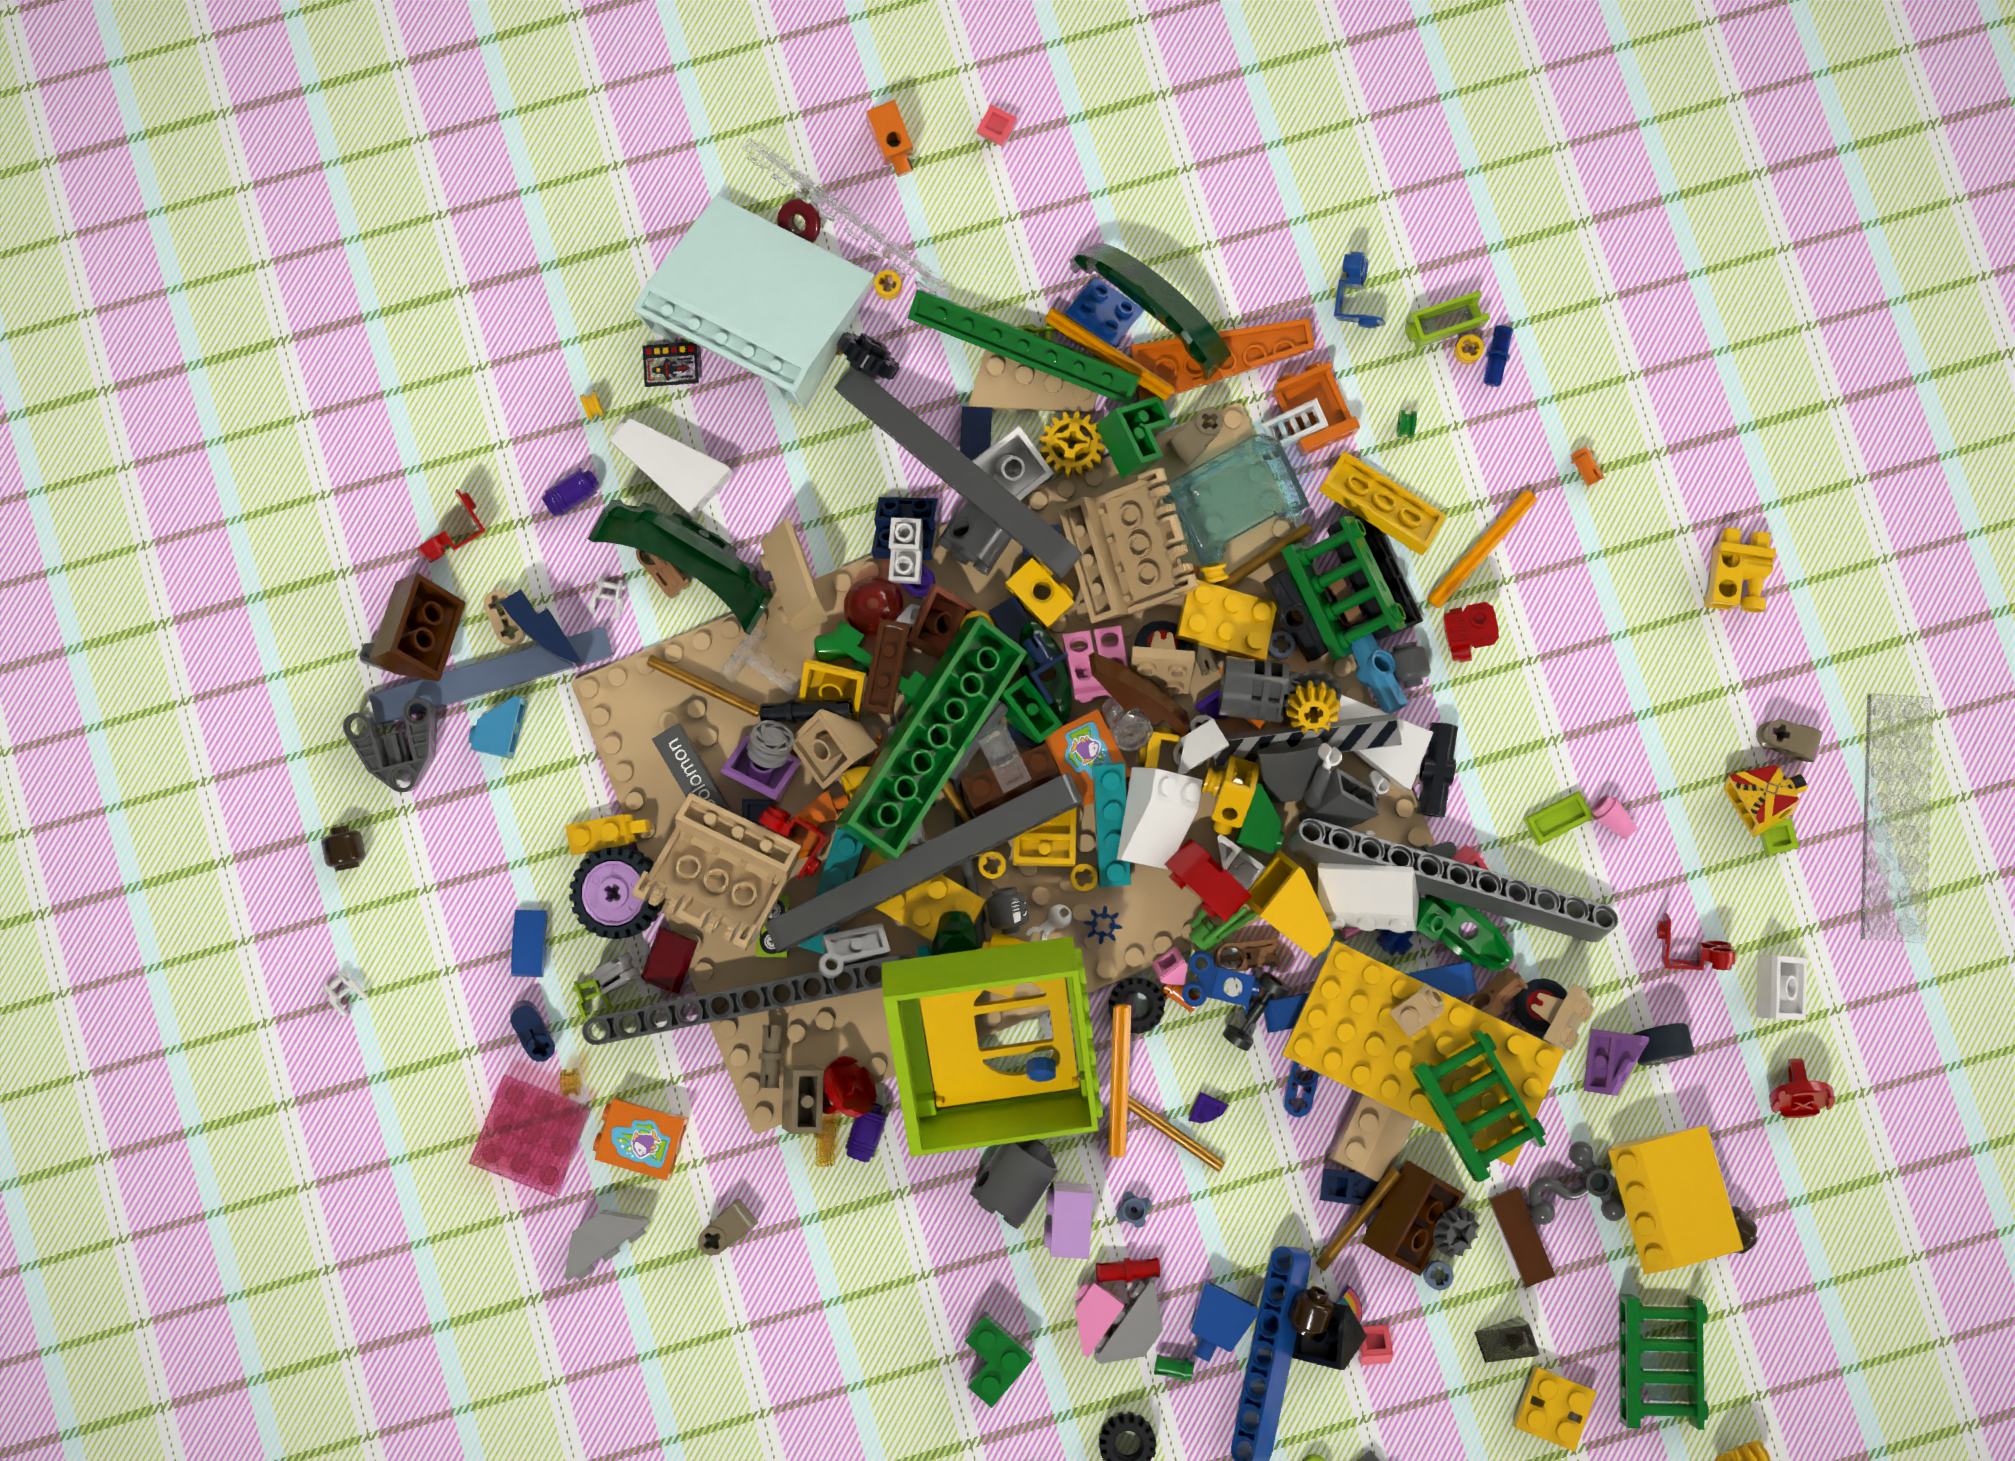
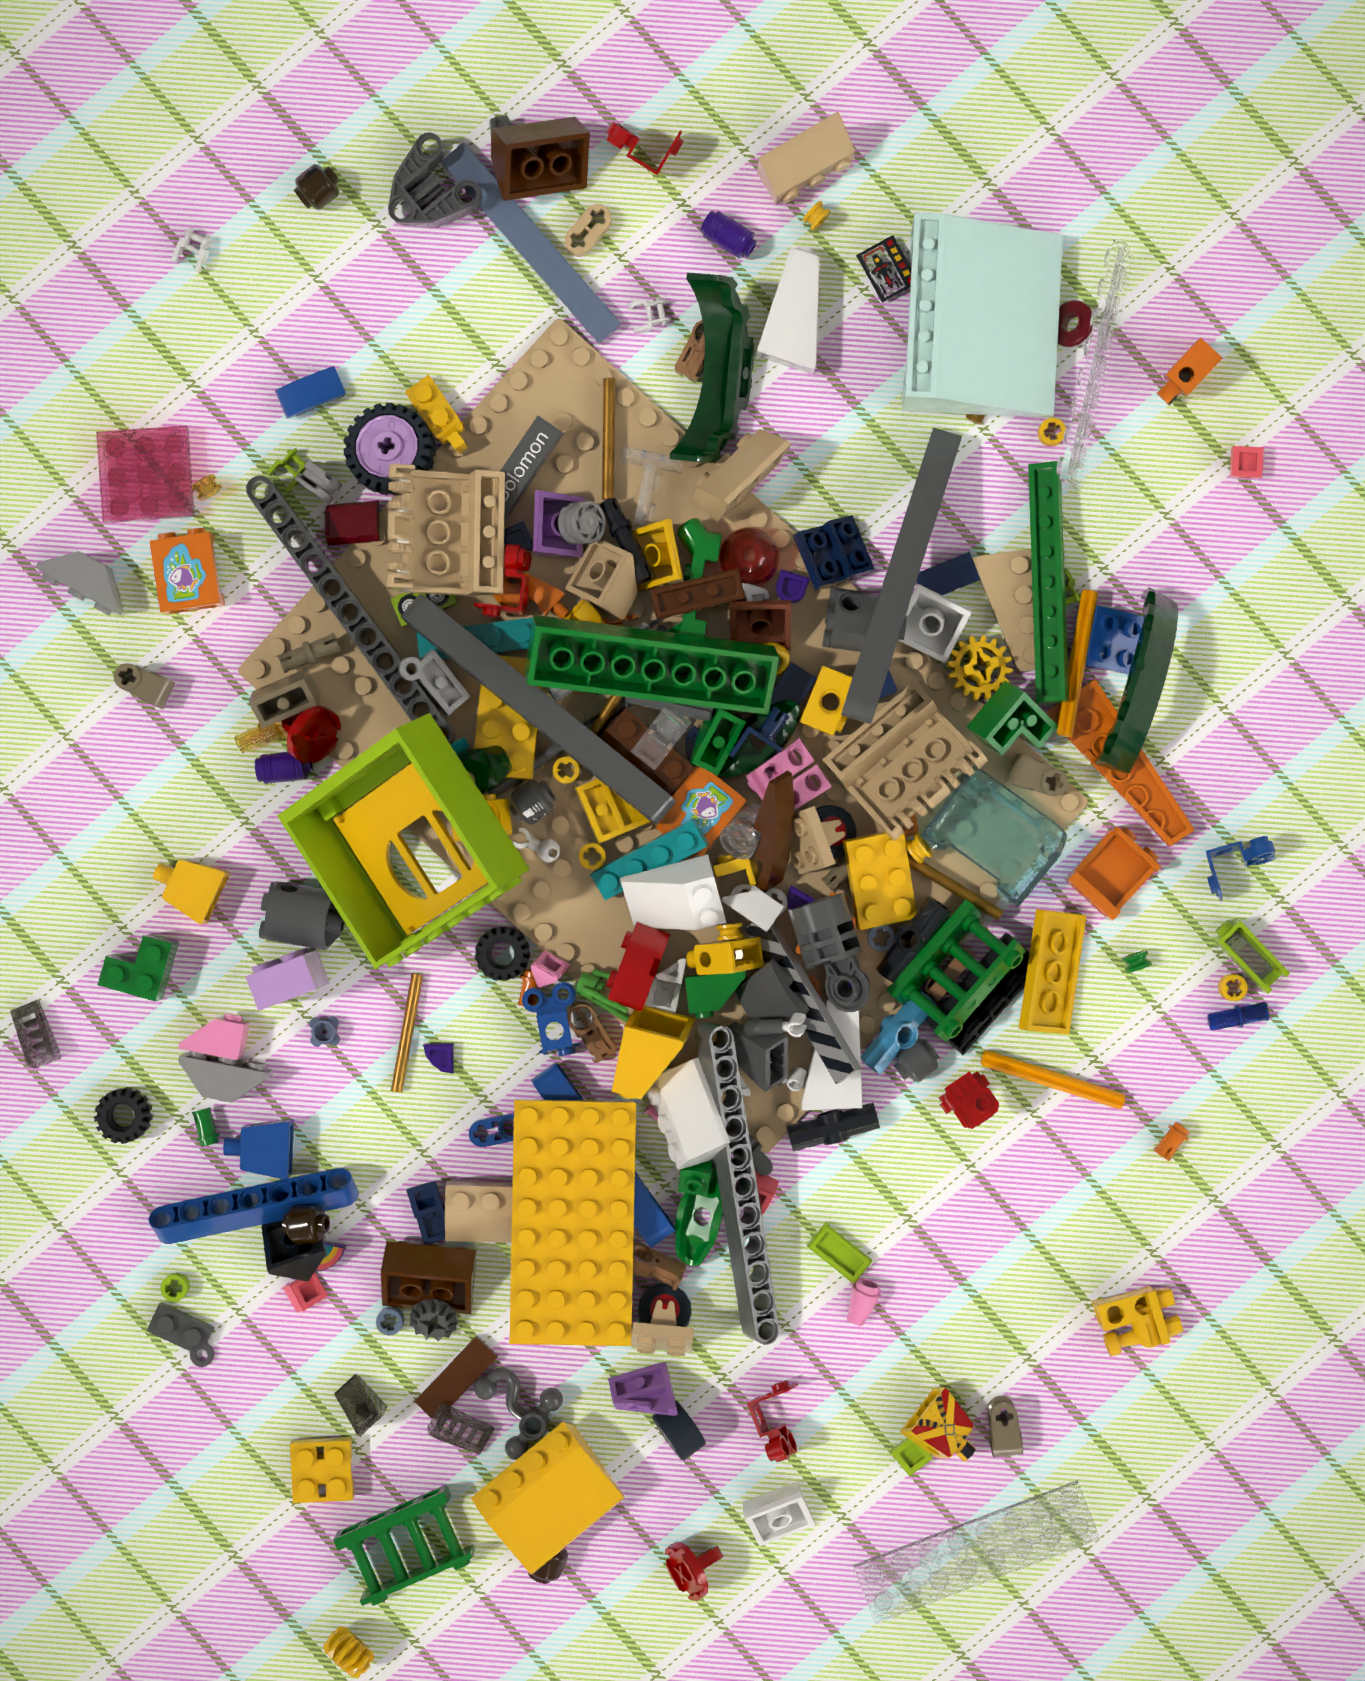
camera: 60 degrees right, 5 degrees up
(499, 729) = (485, 274): dark azure slope -> none
(537, 390) = (806, 159): none -> tan slope
(539, 1044) = (243, 419): dark blue piece -> none
(540, 628) = (592, 268): dark blue slope -> none
(868, 355) = (975, 445): black gear -> none
(906, 550) = (811, 563): white slope -> none
(940, 1273) = (192, 887): none -> yellow torso
(1041, 1069) = (405, 895): blue tile -> none
(1111, 926) = (549, 894): gear -> none
(1119, 1080) = (429, 968): light orange axle -> none
(1127, 1270) = (270, 1049): red pin -> none
(1238, 1036) = (515, 1056): pearl dark grey wheel -> none
(1302, 410) = (1114, 870): white slope -> none
(1312, 696) = (831, 991): yellow gear -> none
(1358, 1218) = (406, 1230): pearl gold bar -> none
(1394, 942) = (660, 1156): clear blue gear -> none
(1418, 1010) = (606, 1202): tan bracket -> none
(1446, 1104) = (517, 1287): green fence -> none
(1550, 1260) = (447, 1412): none -> clear smoke slope

